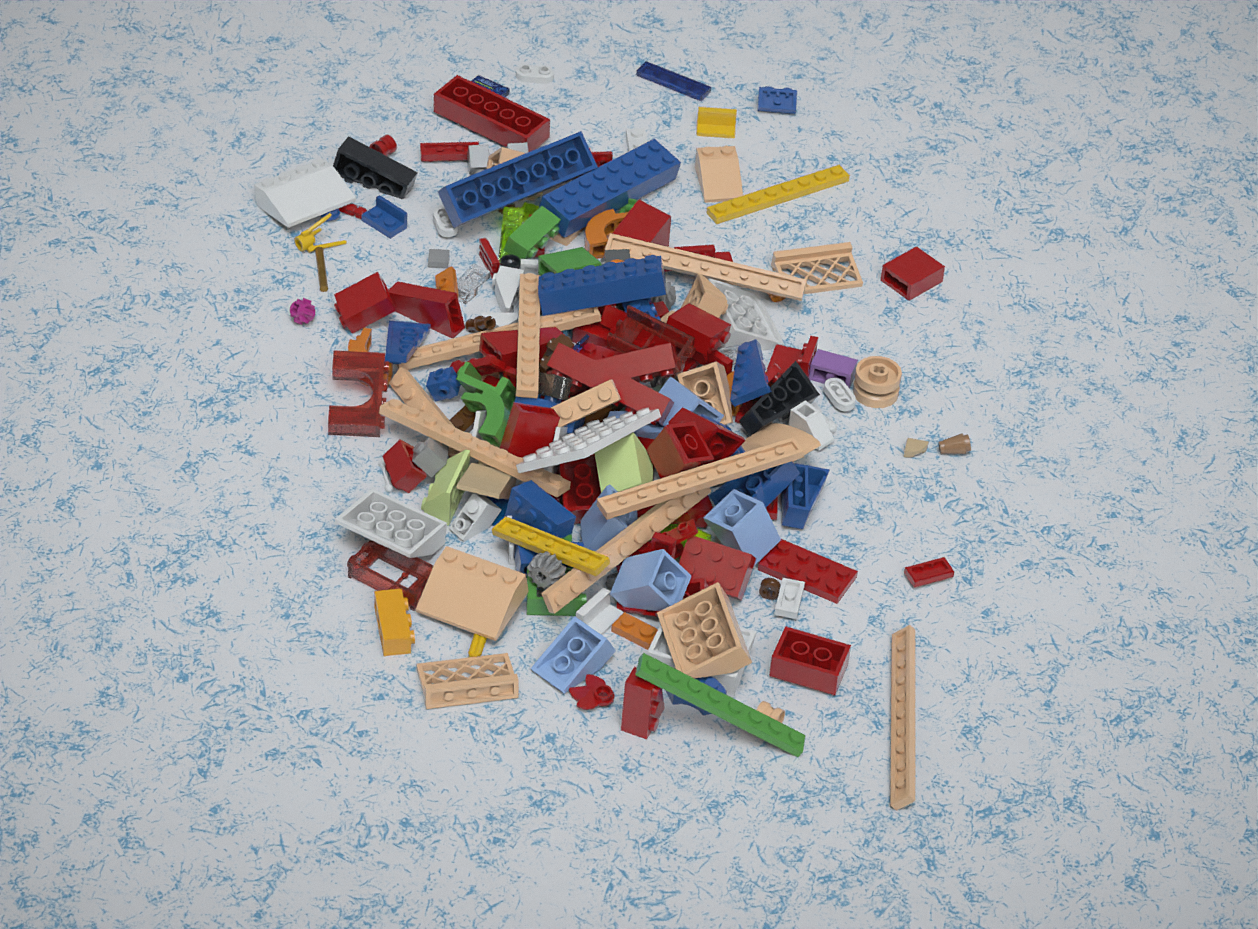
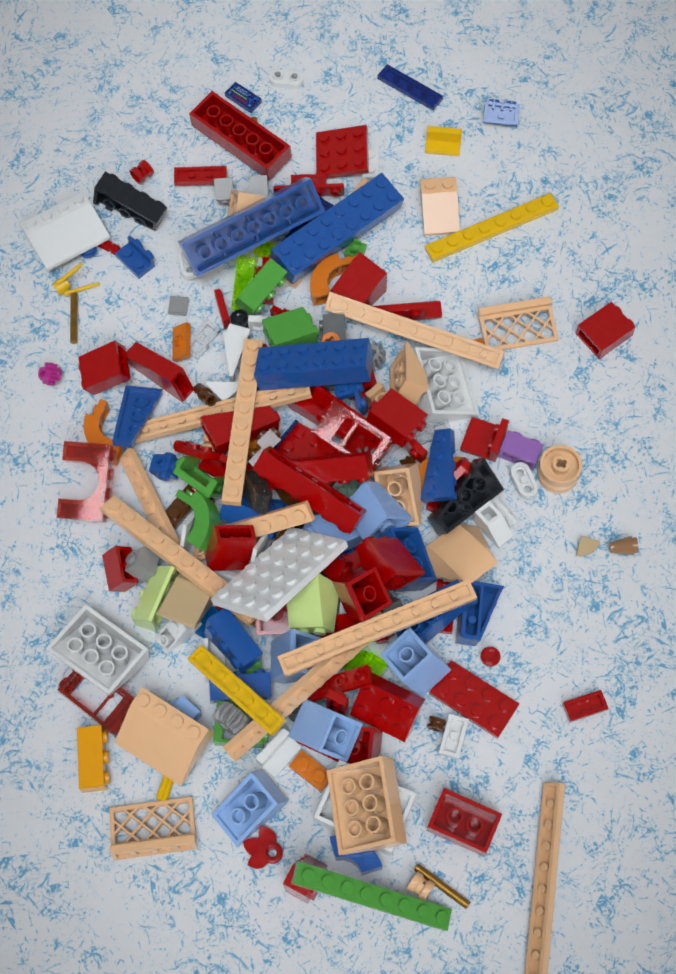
camera: 10 degrees right, 25 degrees up
(608, 129) = (342, 151): none -> red plate
(802, 724) = (443, 886): none -> pearl gold bar
(821, 535) = (490, 656): none -> red plate

